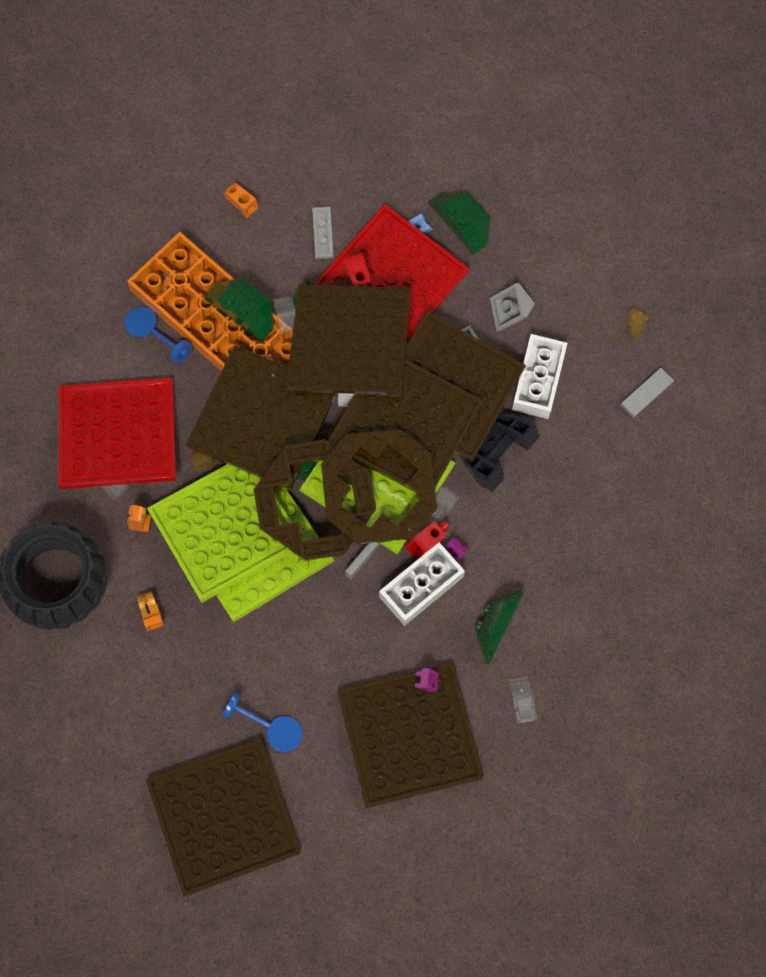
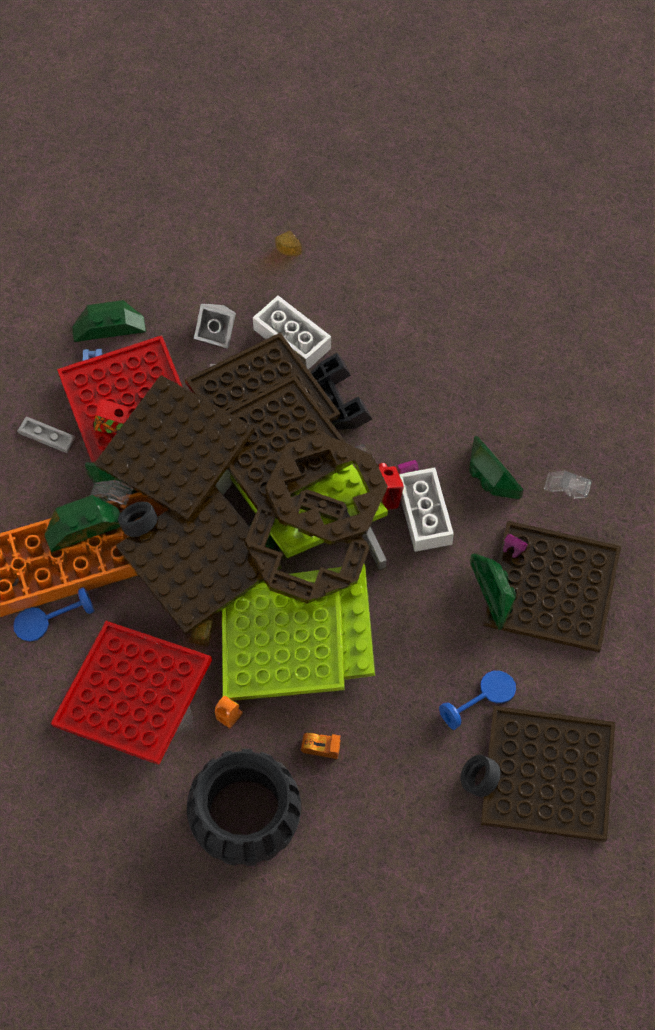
camera: 60 degrees left, 10 degrees down
(188, 765) = (490, 779): none -> black tyre
(265, 357) = (141, 526): none -> black tyre
(371, 684) = (494, 586): none -> dark green wedge
(647, 392) = (352, 268): light grey tile -> none

